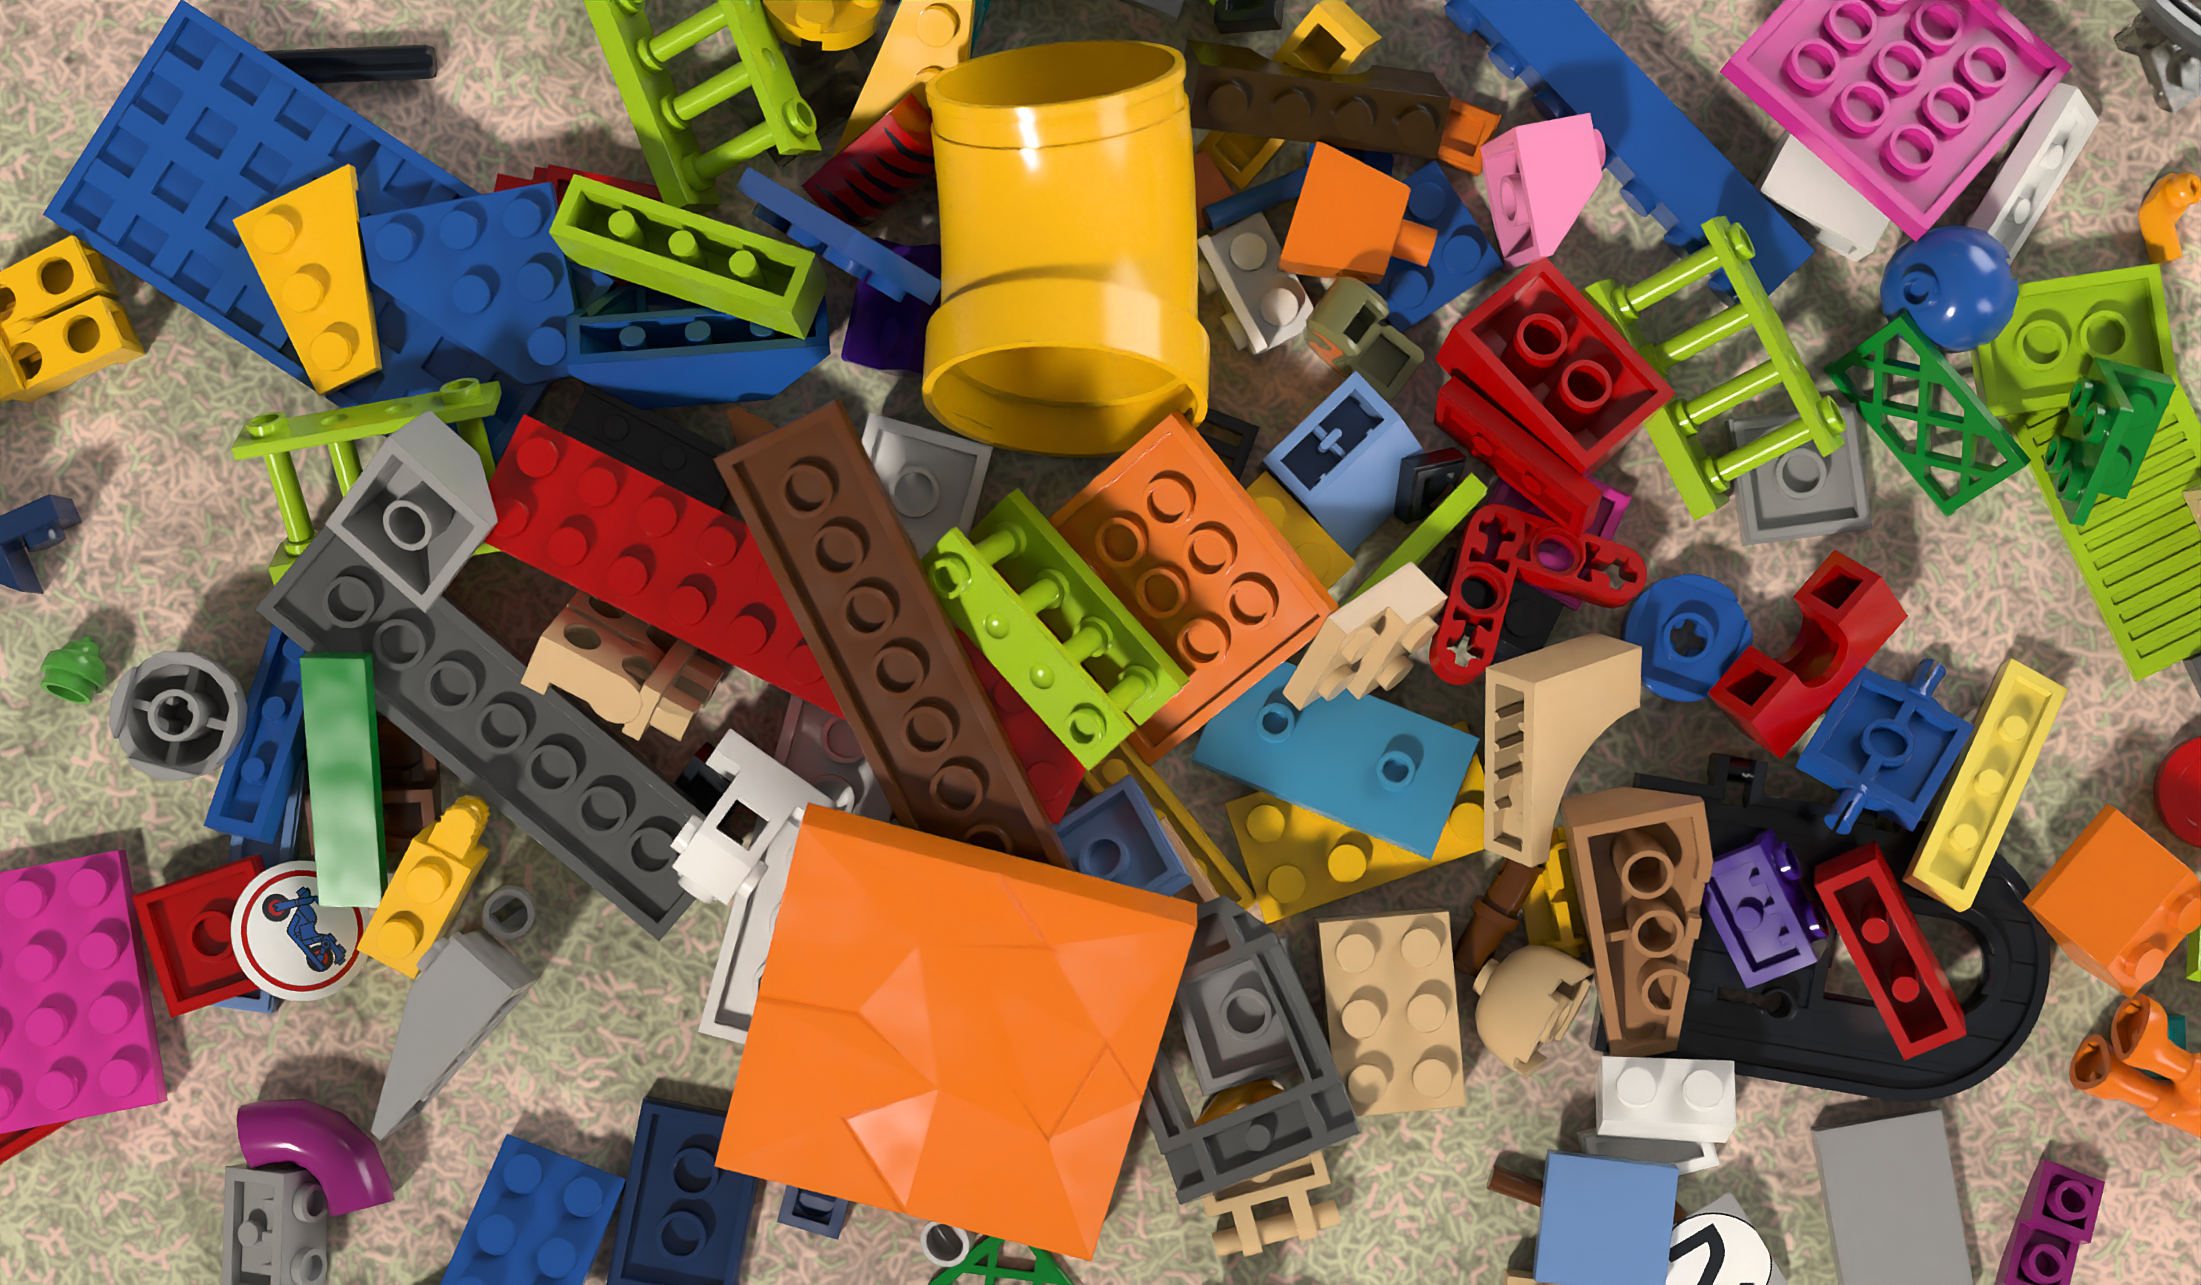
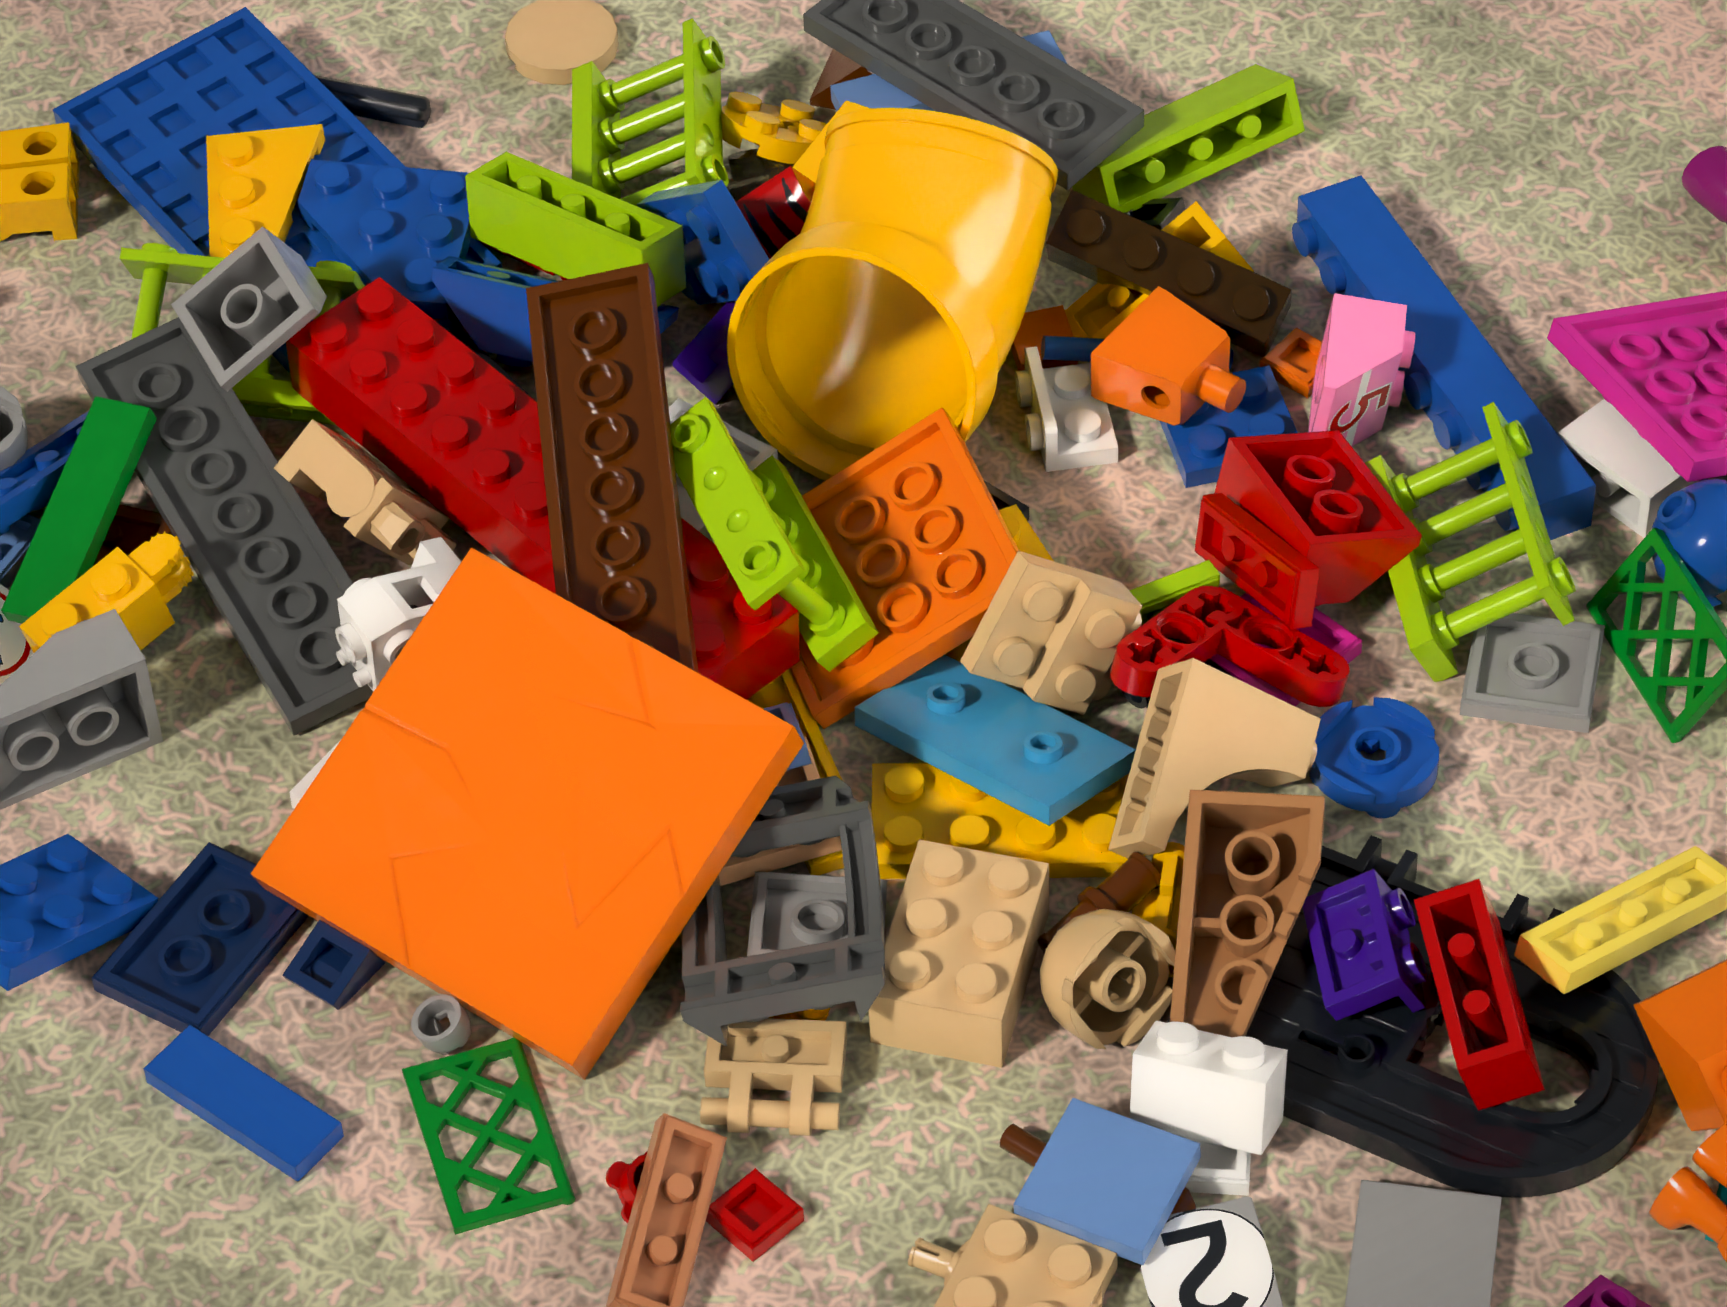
camera: 25 degrees right, 40 degrees down
(517, 921) = (165, 660): light grey hinge -> none
(1345, 462) = (1102, 520): medium blue slope -> none
(1351, 337) = (1134, 441): olive animal -> none
(1424, 479) = (1162, 559): black tile -> none
(1844, 623) = (1537, 763): red arch -> none
(1885, 747) = (1537, 863): blue plate -> none

